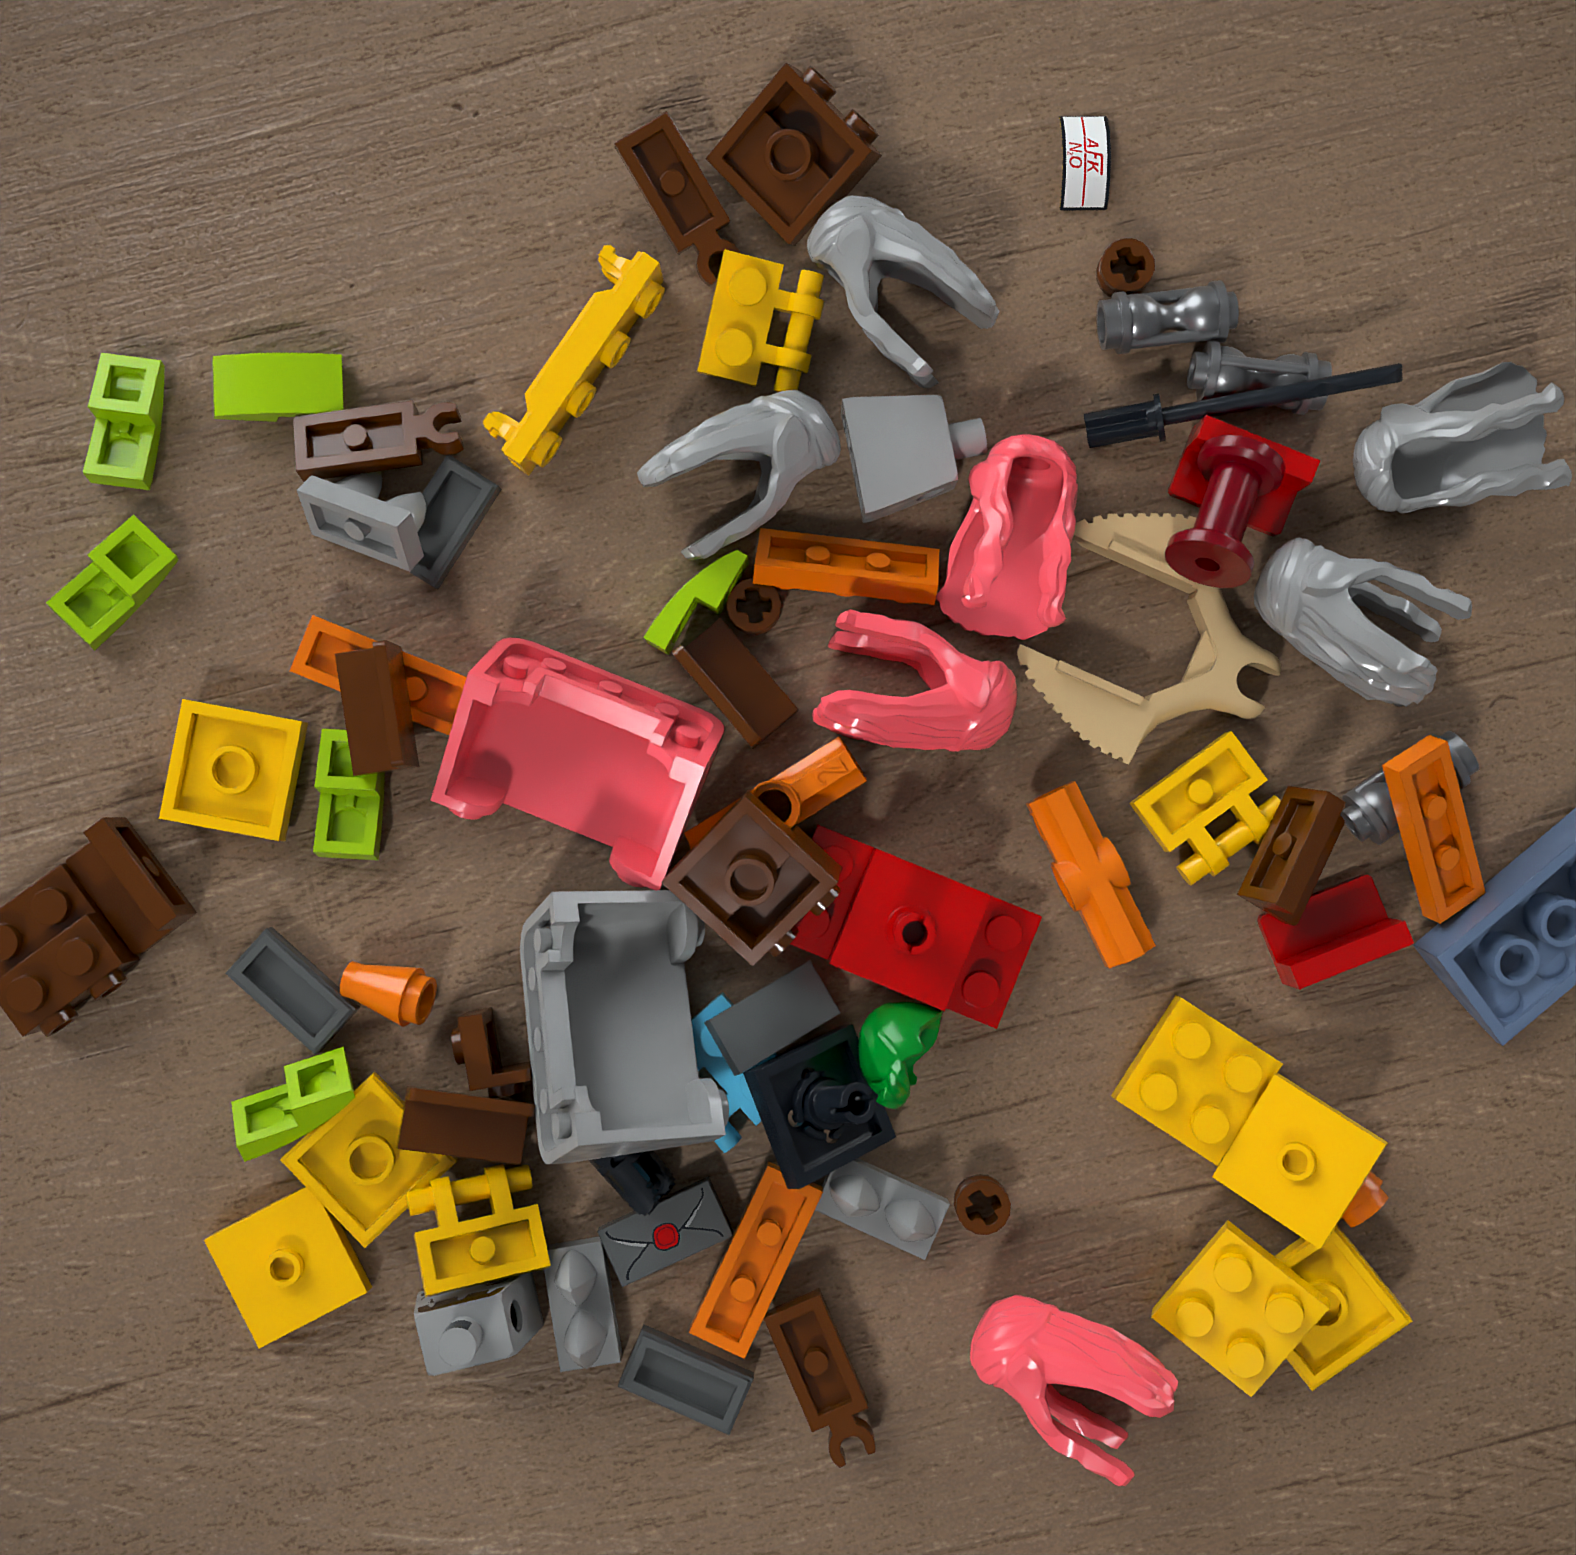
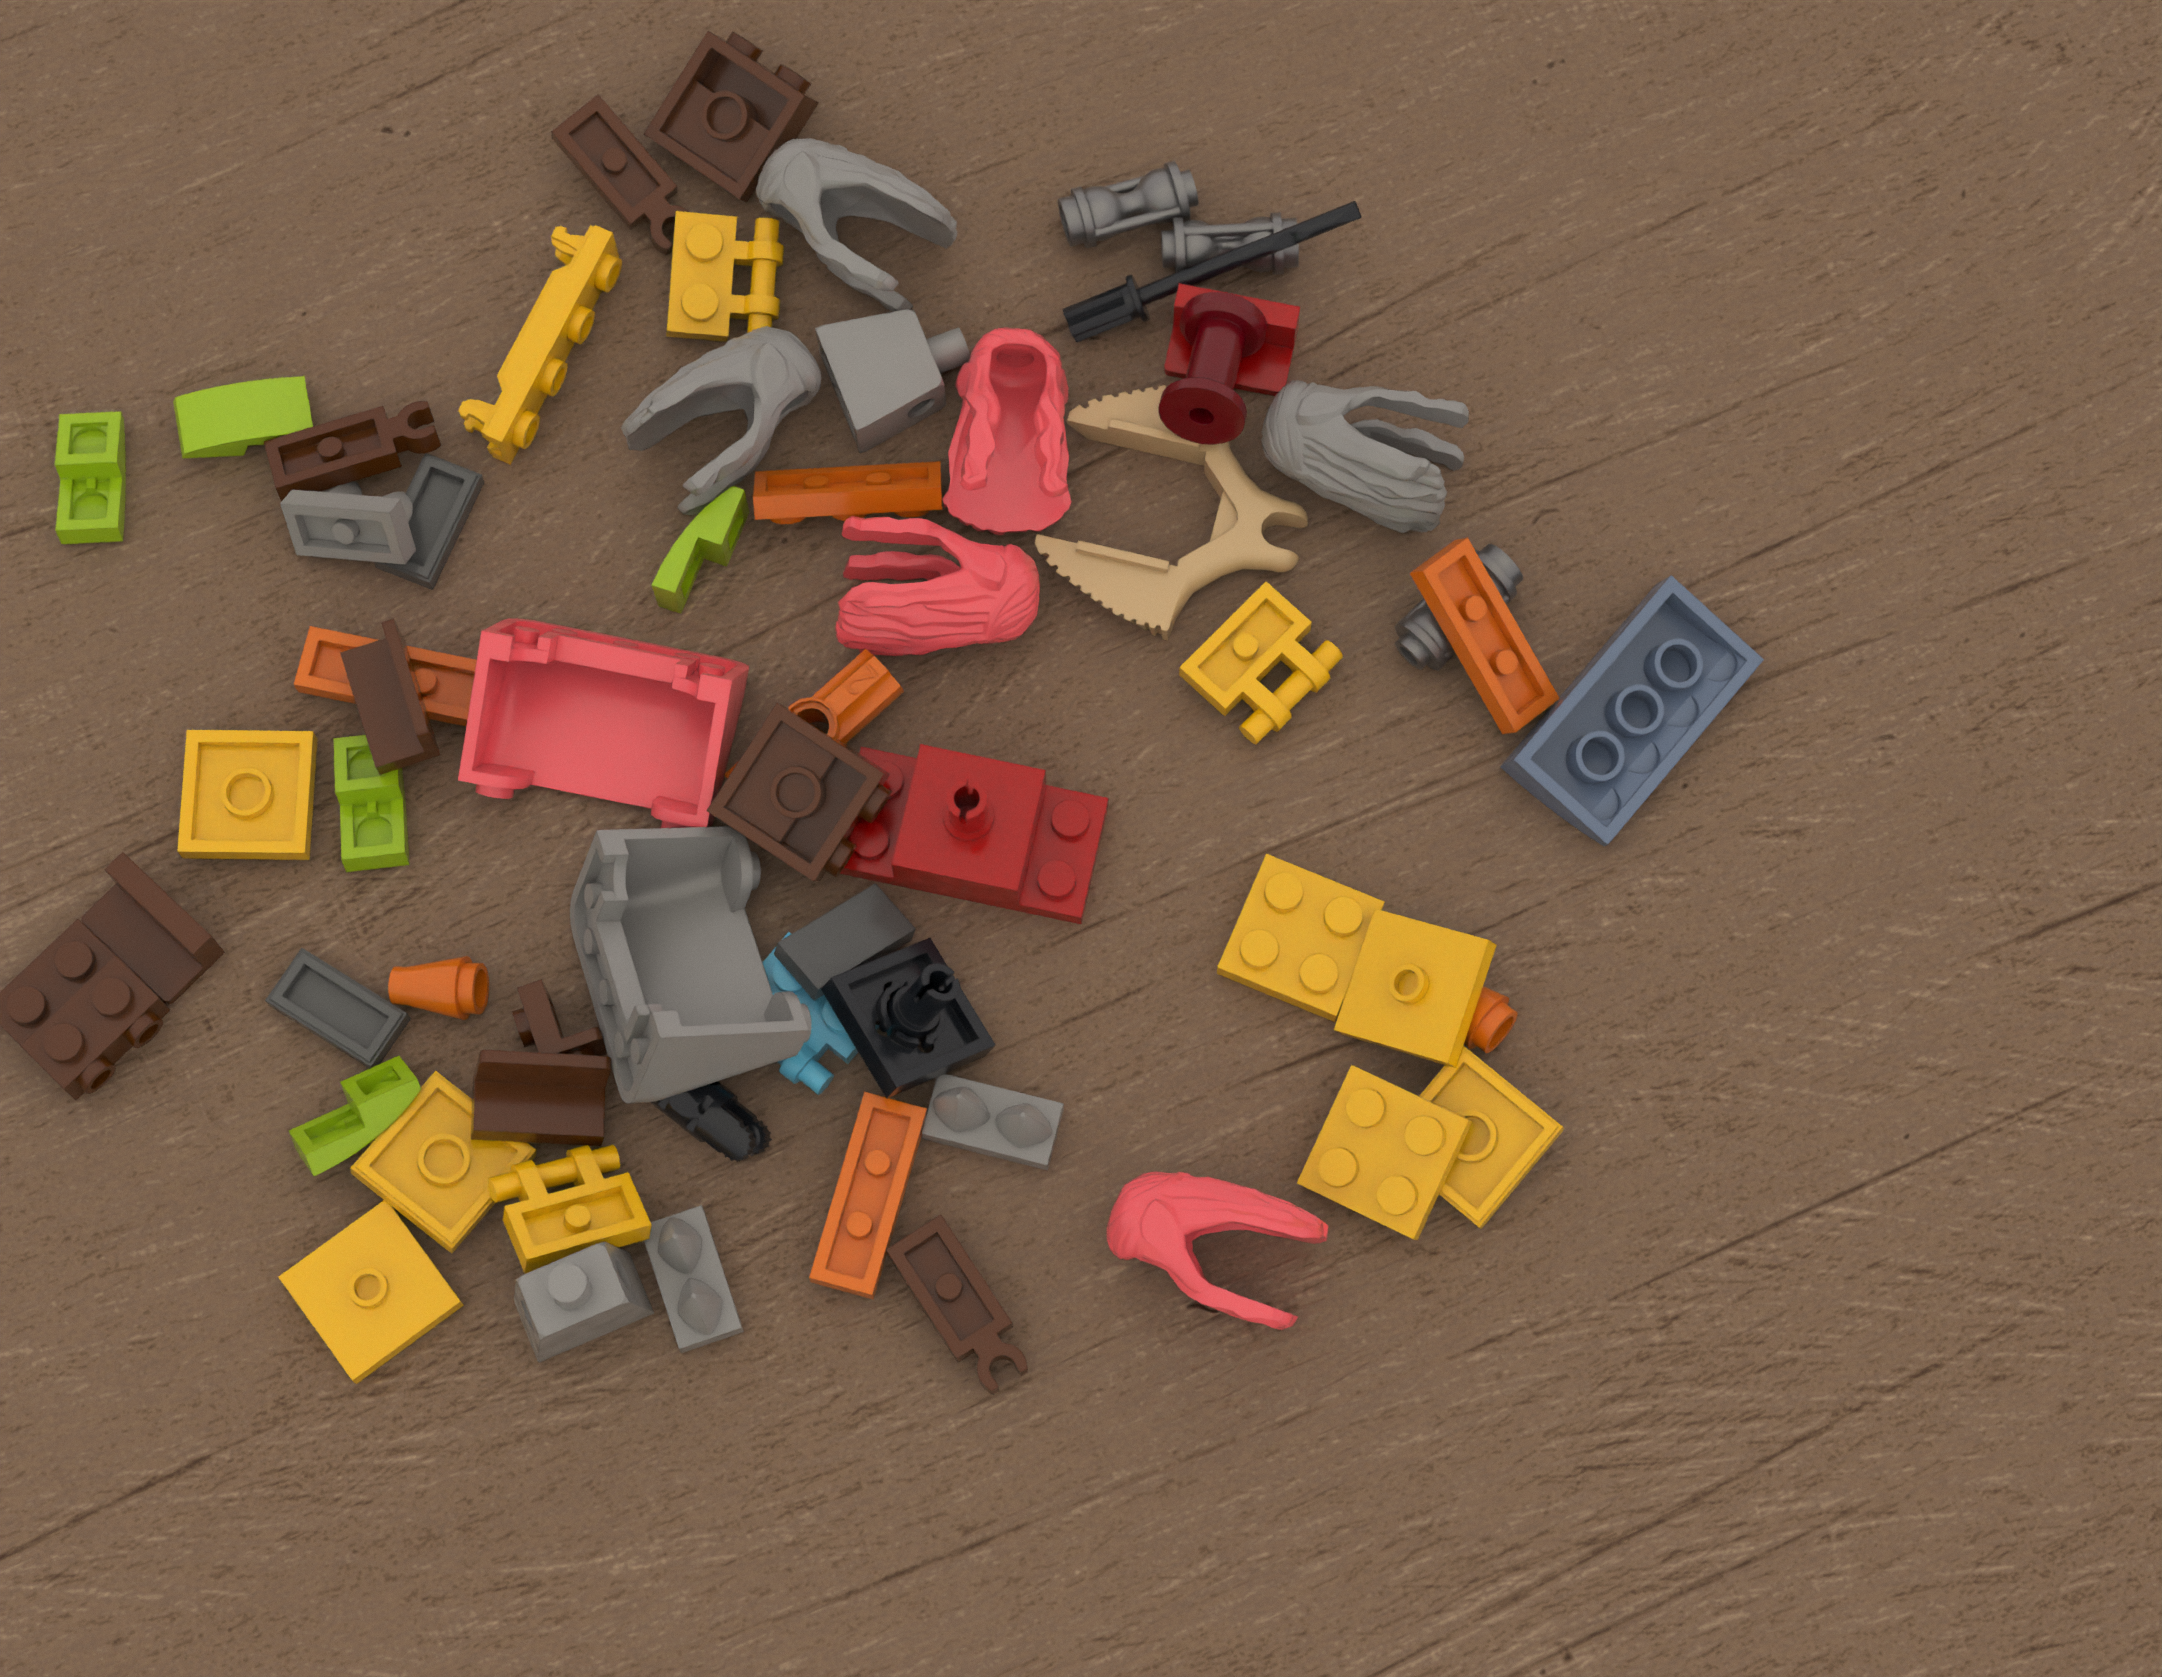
camera: 10 degrees left, 15 degrees down
(115, 584) = (100, 636): lime slope -> none
(673, 1231) = (768, 1187): dark grey tile -> none
(686, 1379) = (815, 1340): dark grey tile -> none
(736, 683) = (753, 625): reddish brown panel -> none
(741, 620) = (748, 561): reddish brown bush -> none
(892, 1043) = (980, 942): green hair -> none
(974, 1221) = (1100, 1081): reddish brown bush -> none
(1085, 163) = (1023, 80): white sticker -> none
(1091, 875) = (1149, 747): orange piece -> none
(1135, 254) = (1089, 154): reddish brown bush -> none
(1293, 853) = (1353, 689): reddish brown panel -> none
(1335, 933) = (1409, 765): red panel -> none
(1461, 444) = (1435, 270): light grey hair -> none

